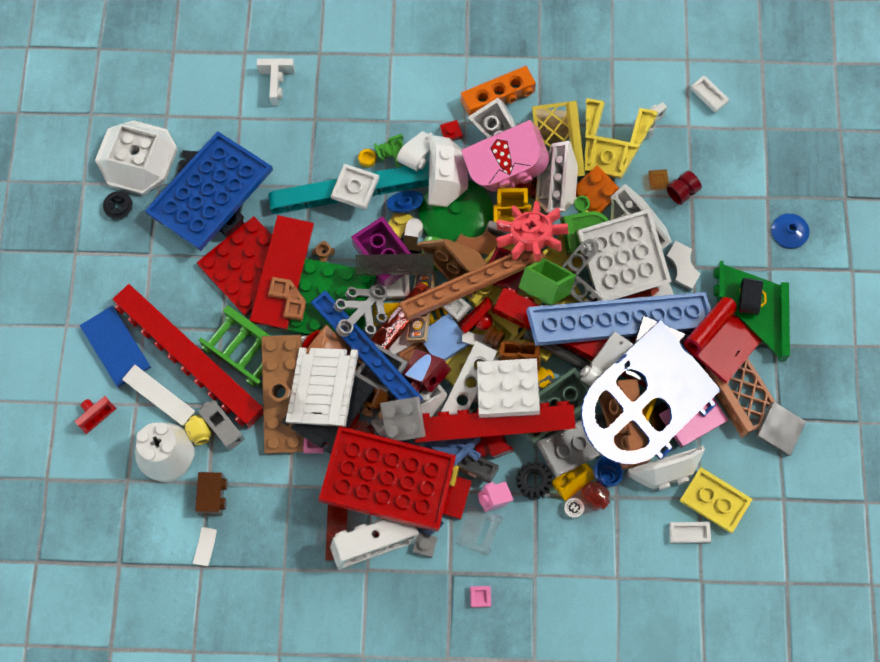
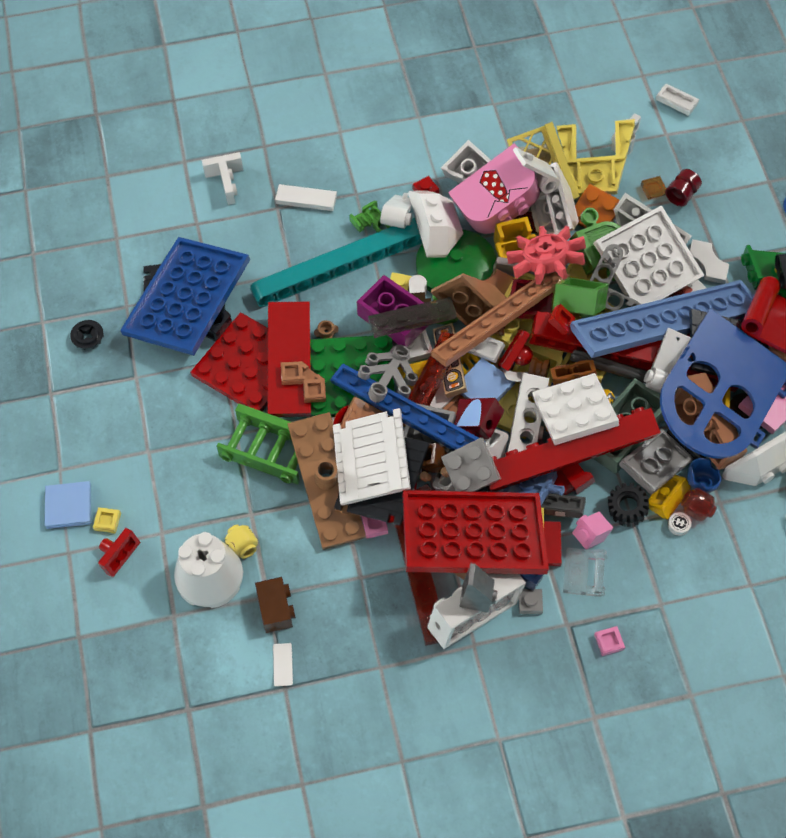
camera: 15 degrees left, 10 degrees down
(65, 360) = (68, 505): none -> light blue tile
(93, 382) = (106, 520): none -> light yellow tile
(114, 344) = (122, 477): blue tile -> none
(140, 171) = (94, 283): white piece -> none
(158, 395) = (185, 514): white tile -> none
(189, 356) = (209, 467): red brick -> none
(221, 425) = (267, 529): light grey brick -> none
(342, 115) = (306, 197): none -> white tile
(355, 186) = (343, 256): white plate -> none
(367, 158) = (345, 232): yellow tile -> none
(372, 535) = (477, 590): none -> flat silver slope
(404, 201) = (399, 263): blue dish -> none
(519, 77) = (478, 130): orange brick -> none
(521, 301) = (561, 319): none -> red plate
(547, 146) = (546, 177): none -> white door

